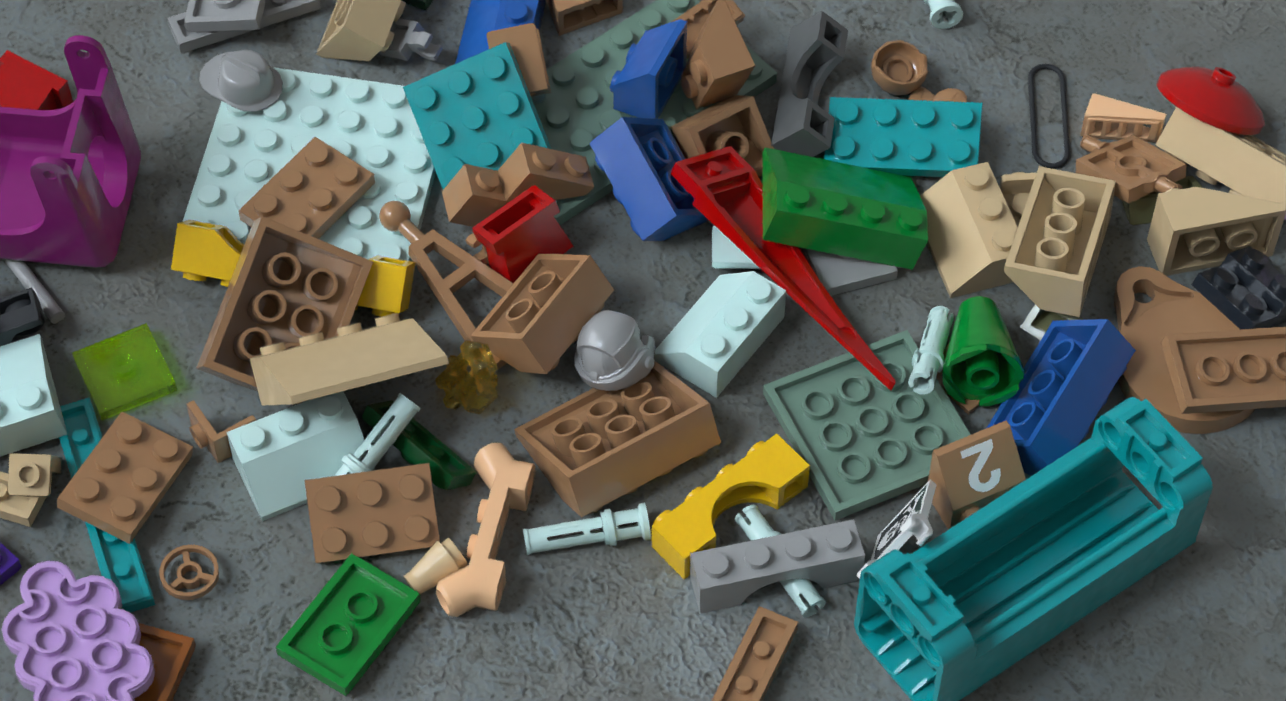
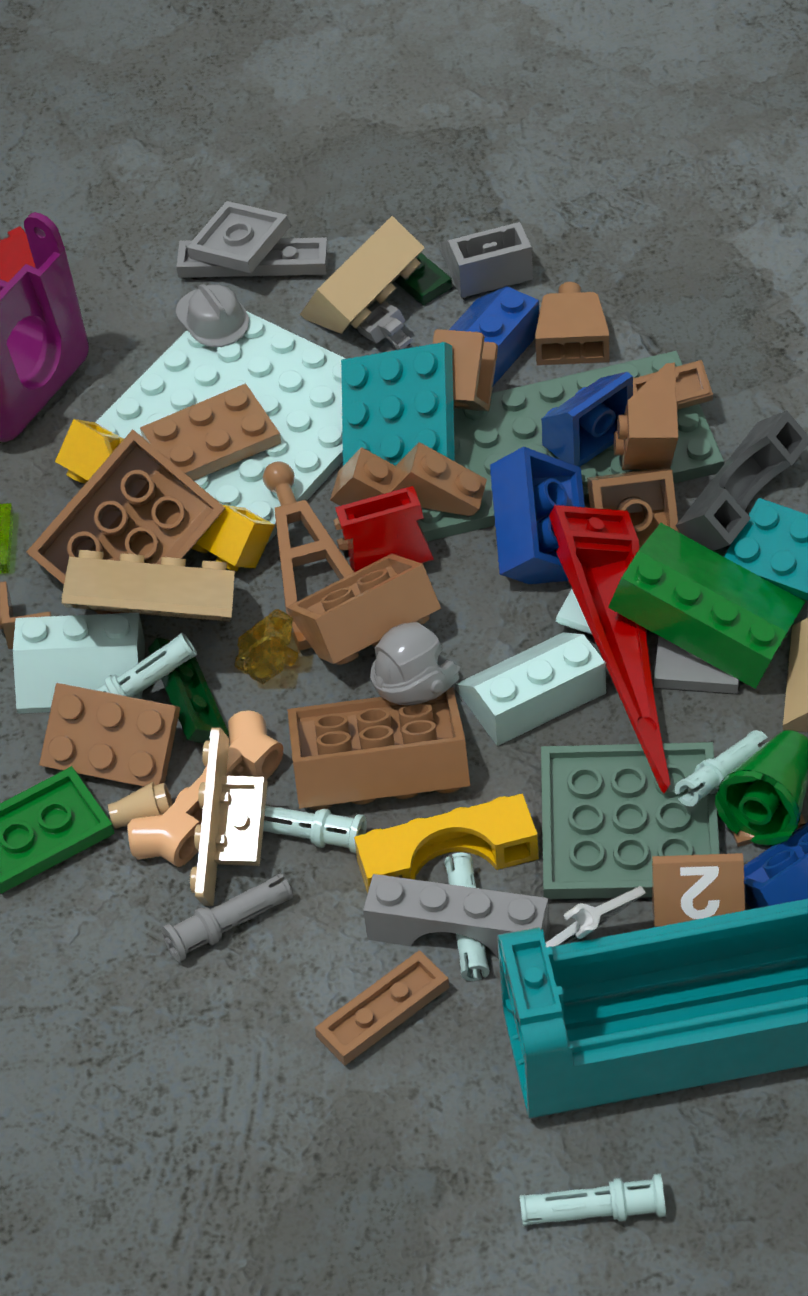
camera: 30 degrees right, 5 degrees down
(535, 549) = (230, 819): none -> bracket
(558, 652) = (209, 924): none -> light grey pin

